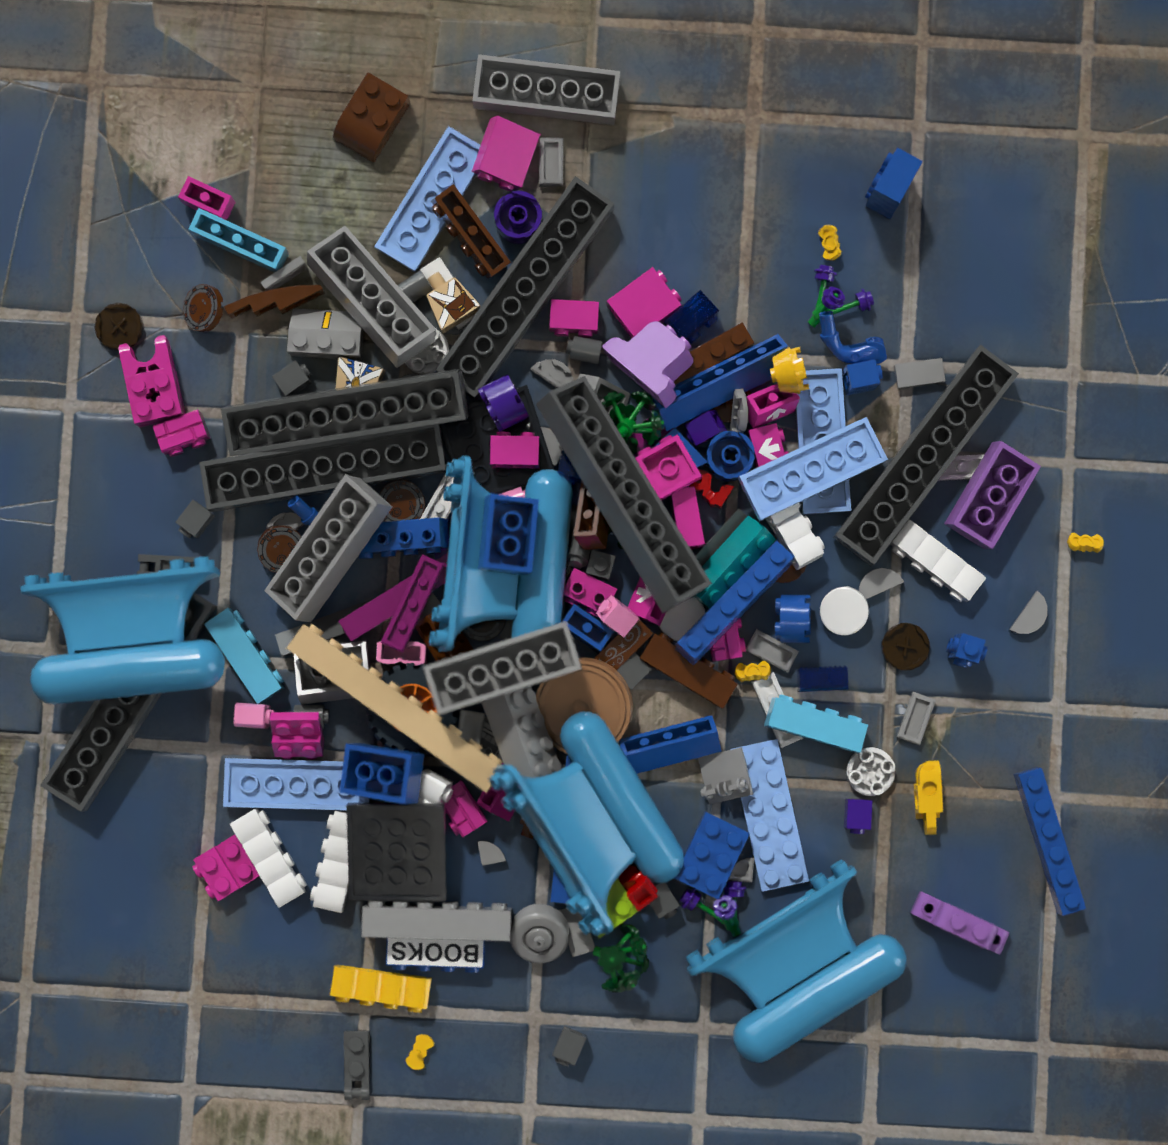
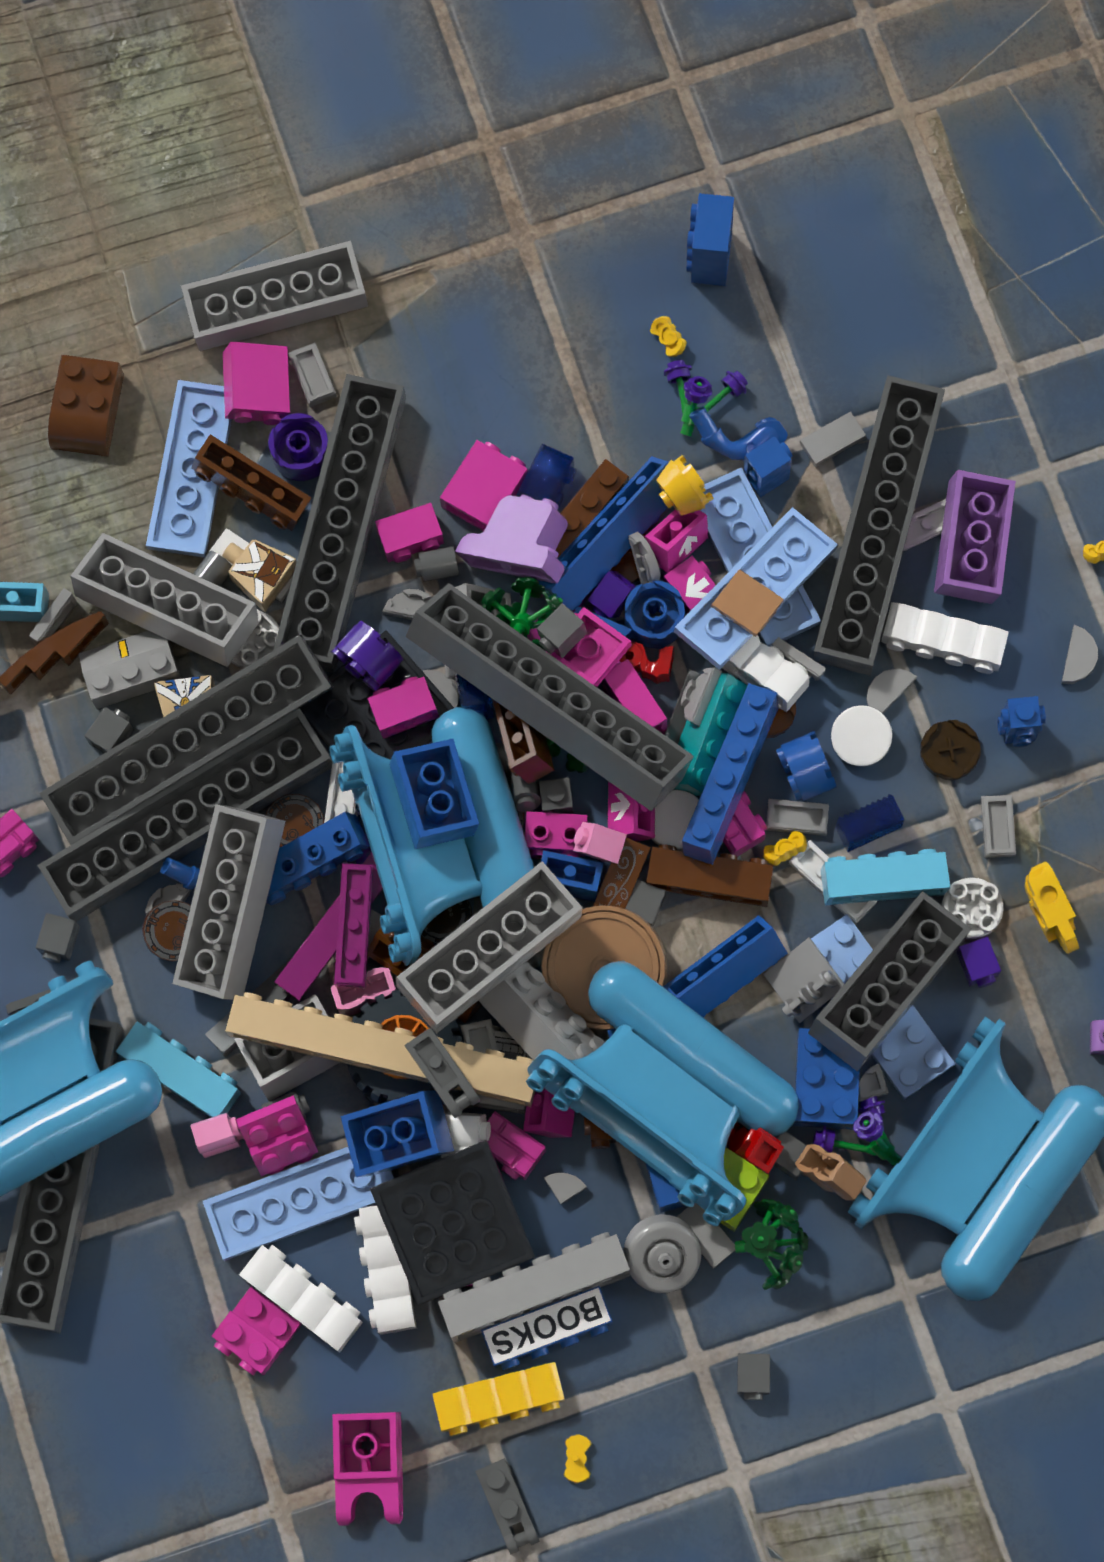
camera: 15 degrees left, 10 degrees down
(264, 1001) = (363, 1472): none -> dark pink brick
(430, 745) = (441, 1071): none -> dark grey plate
(652, 448) = (561, 631): none -> dark grey brick
(684, 928) = (830, 1172): none -> medium nougat brick
(736, 532) = (698, 695): none -> light grey tile
(786, 806) = (889, 981): none -> dark grey brick
(801, 480) = (747, 603): none -> medium nougat piece
(819, 530) = (794, 655): none -> light grey tile

